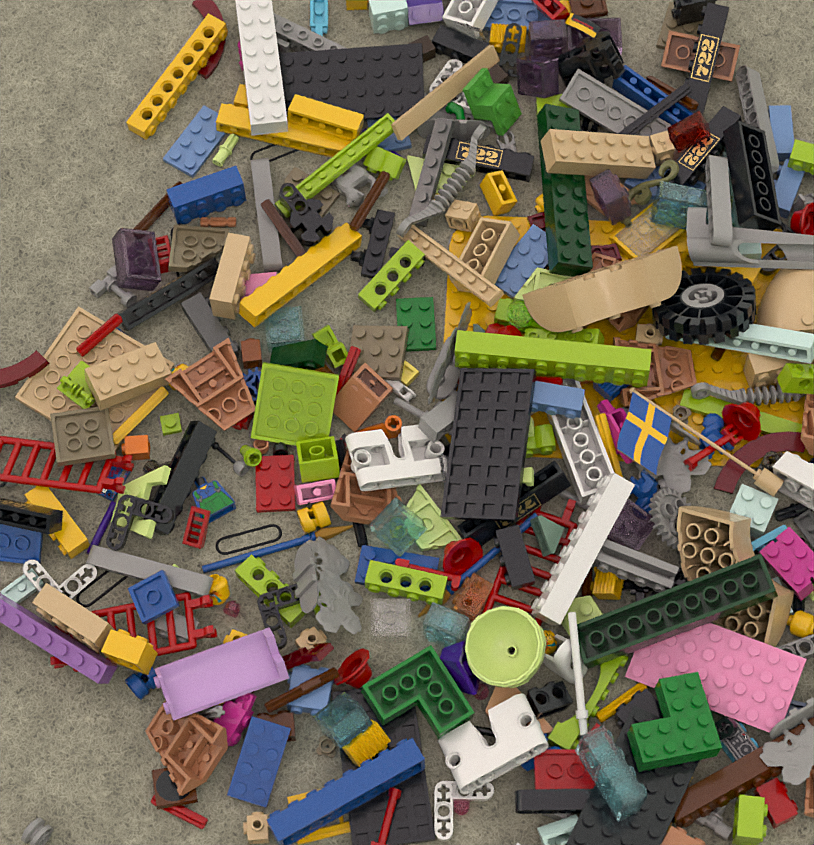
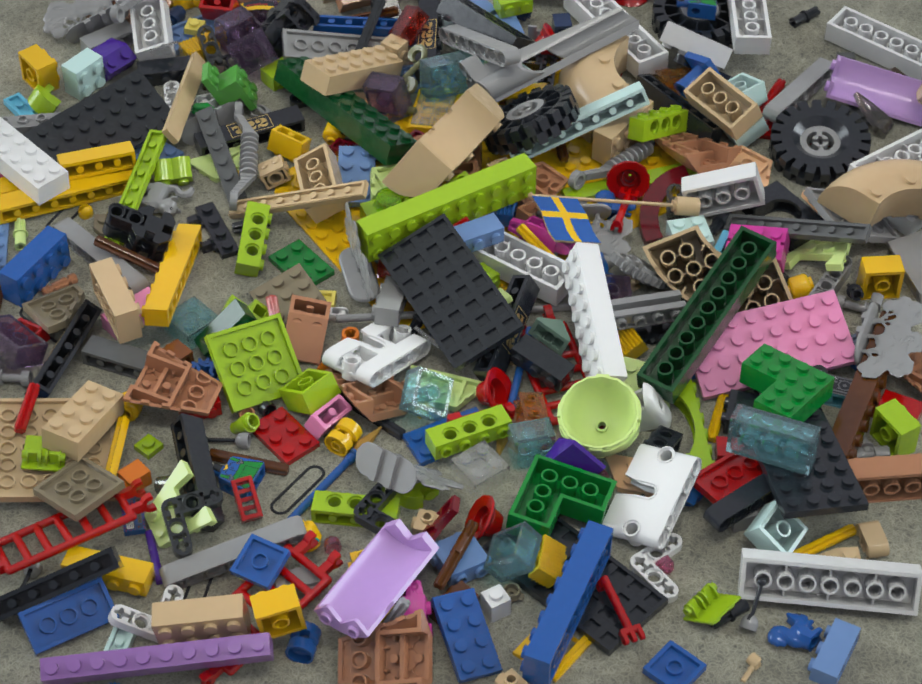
camera: 40 degrees left, 20 degrees down
(231, 489) = (270, 466): none -> reddish brown axle
(289, 158) = (85, 211): none -> yellow hinge
(304, 748) = (495, 603): none -> white brick
(335, 21) = (42, 100): none -> lime brick
(369, 201) = (186, 198): reddish brown axle -> none
(519, 12) = (193, 25): none -> light yellow plate
(581, 712) = (699, 432): white bar -> none

